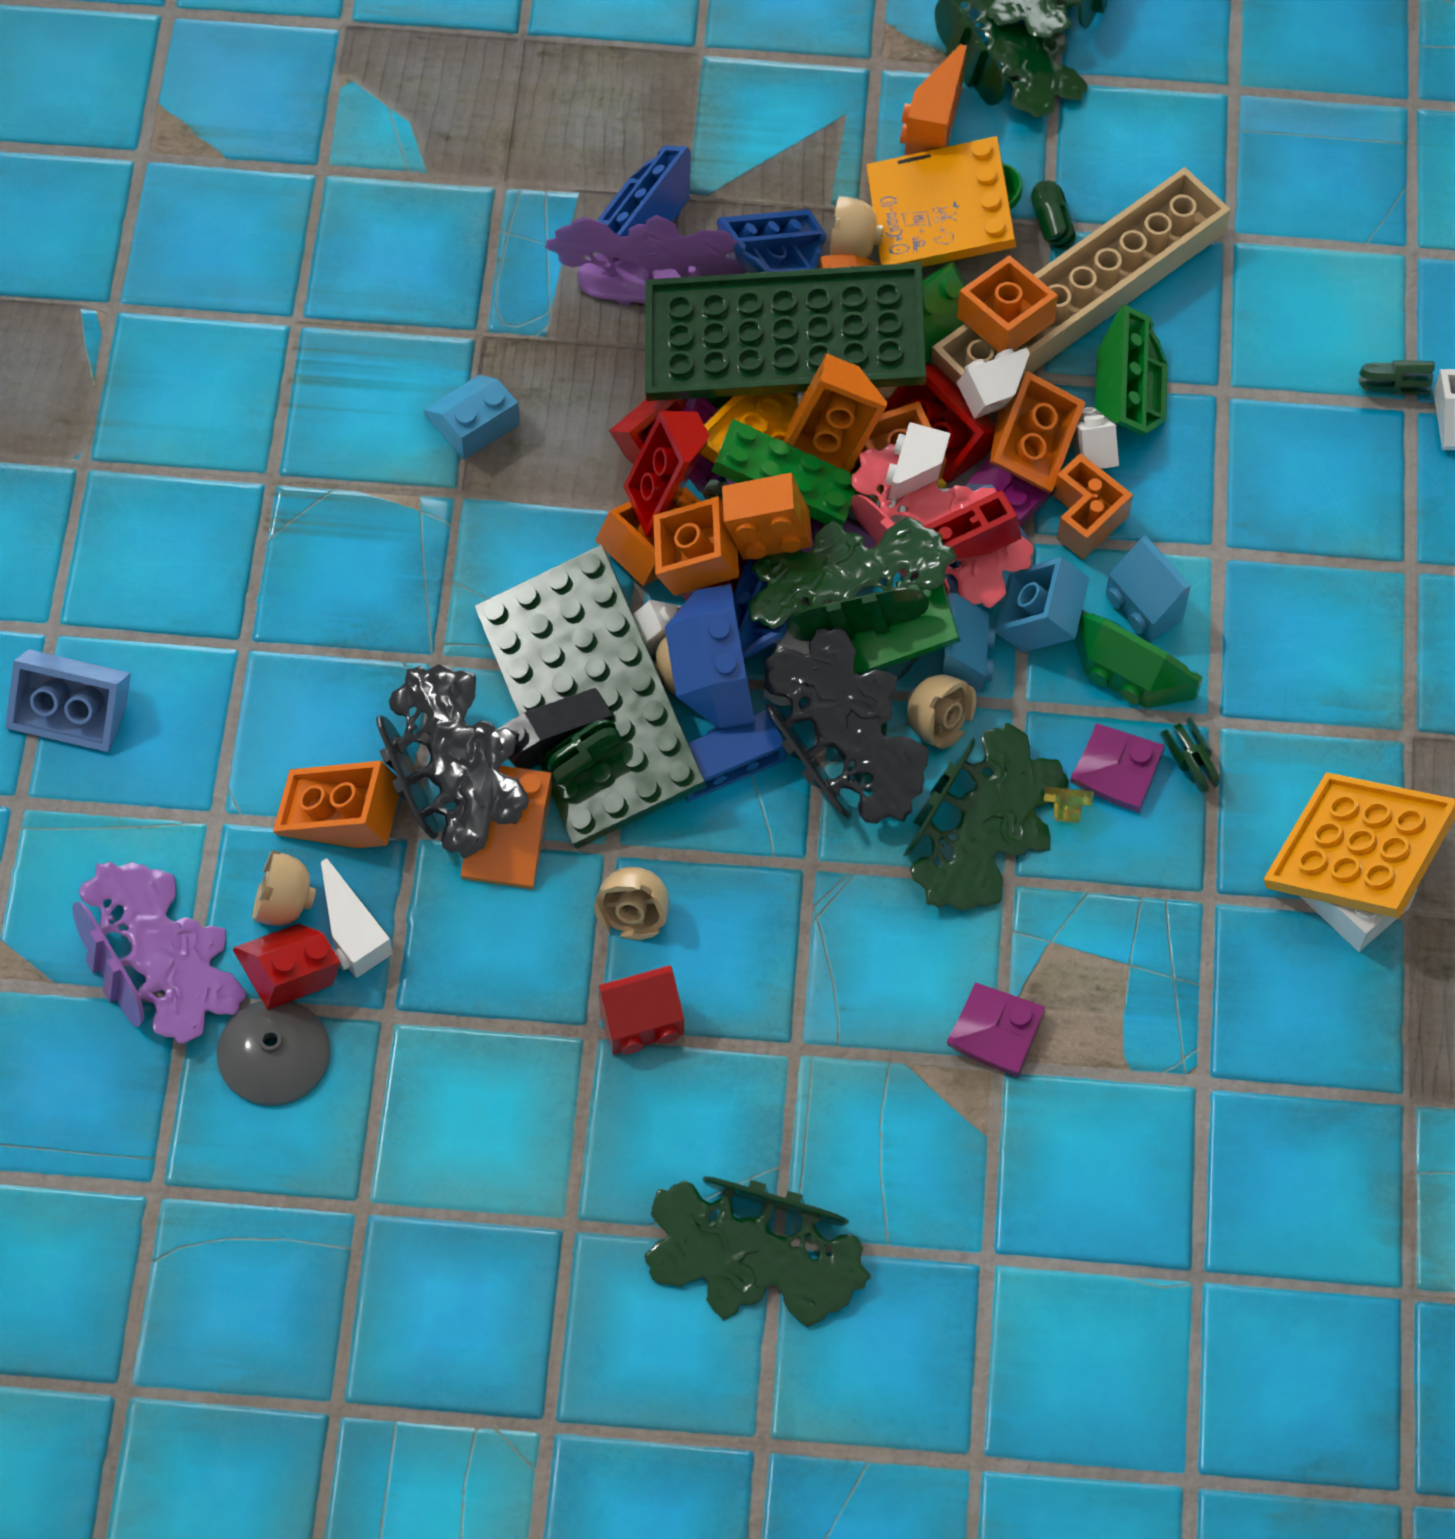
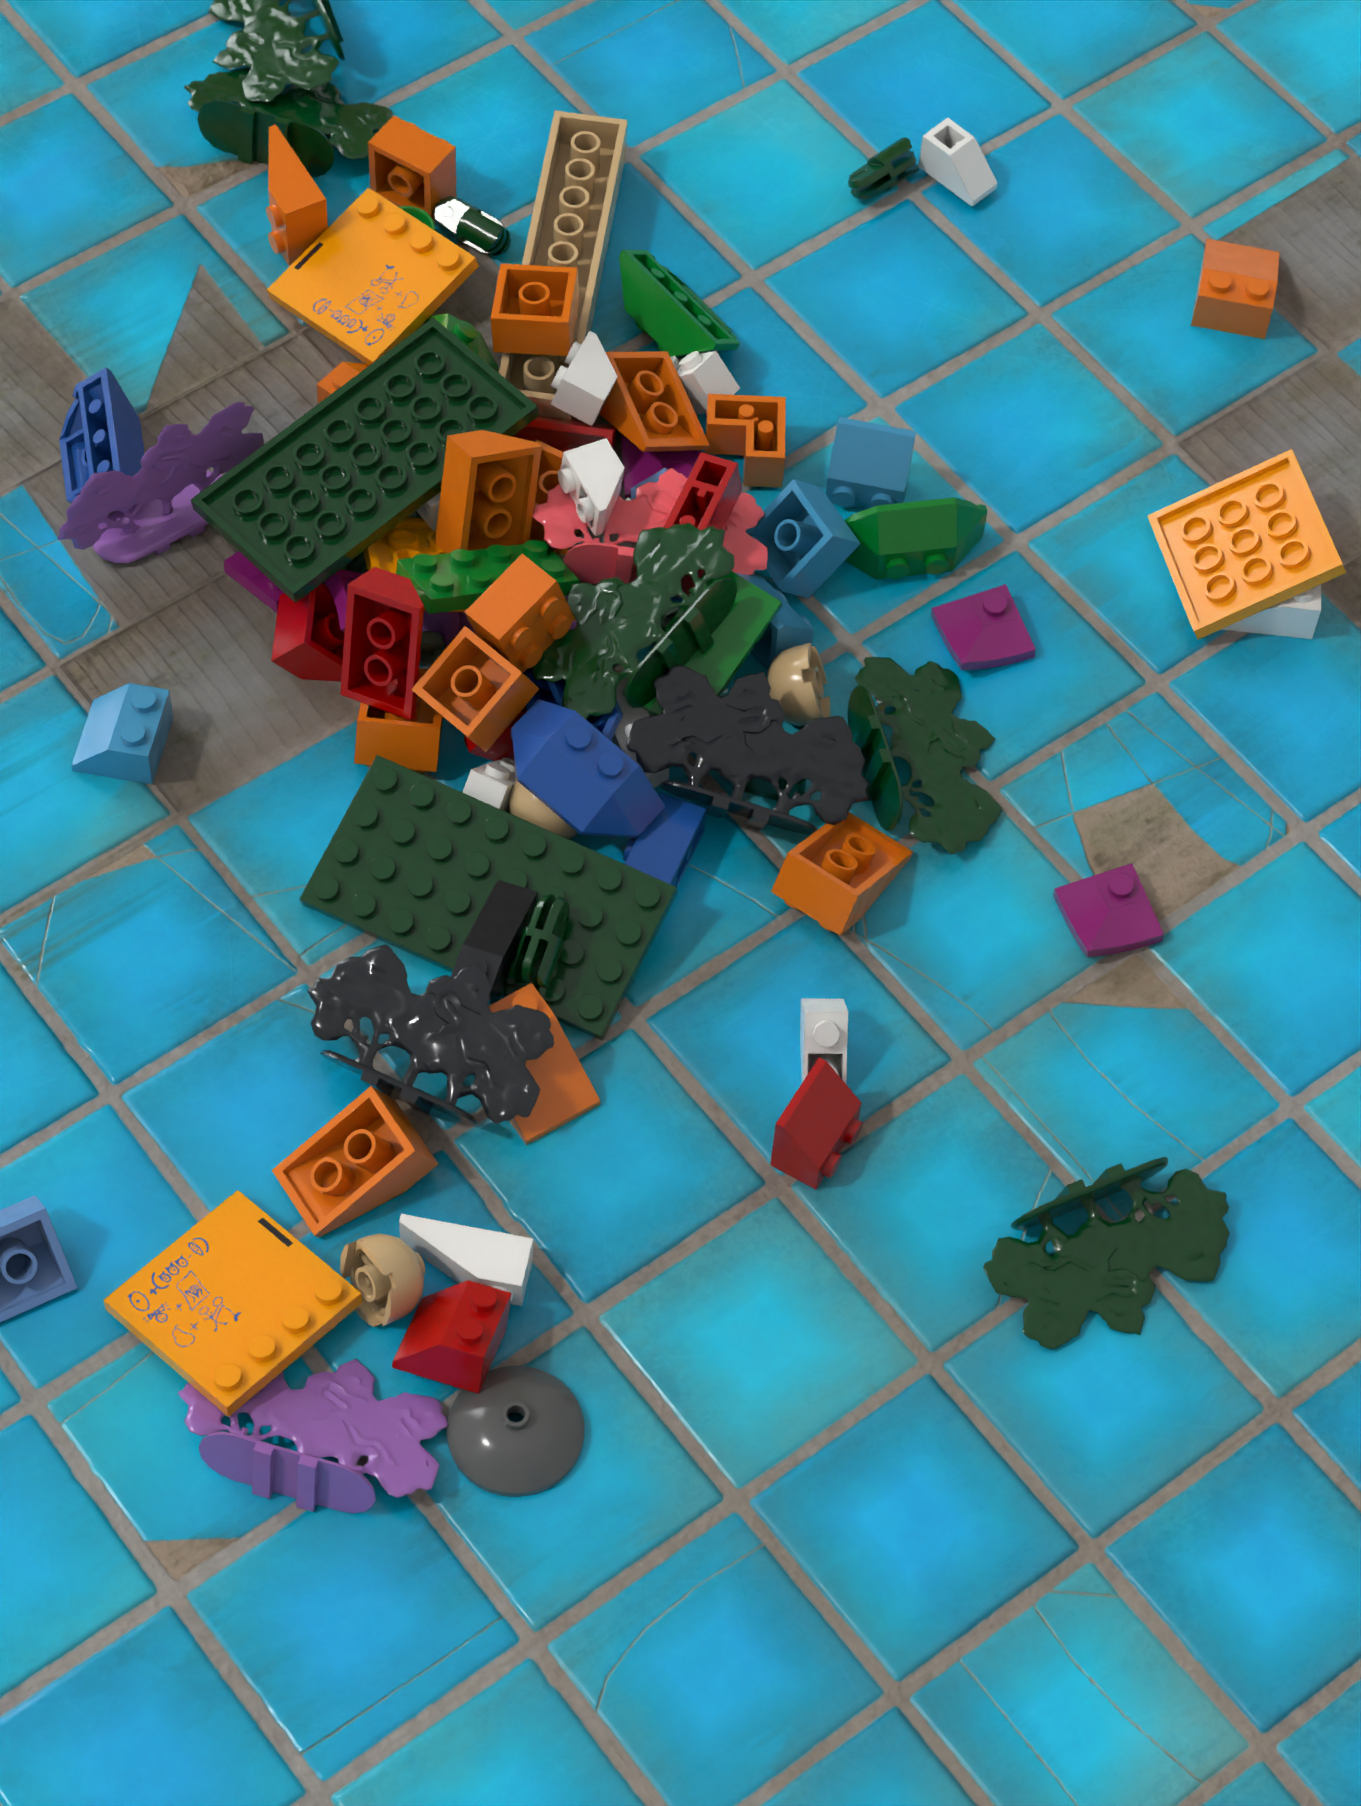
camera: 45 degrees left, 5 degrees down
(182, 833) = (233, 1302): none -> light orange plate
(633, 903) = (712, 1041): tan cylinder -> none
(708, 962) = (824, 1034): none -> white slope
(775, 240) = (271, 392): blue wedge -> none
(840, 856) = (839, 872): none -> orange slope
(855, 228) = (319, 343): tan cylinder -> none
(1045, 141) = (411, 166): none -> orange brick
(1068, 802) = (977, 684): clear yellow tile -> none
(1193, 755) = (1035, 576): dark green arm -> none

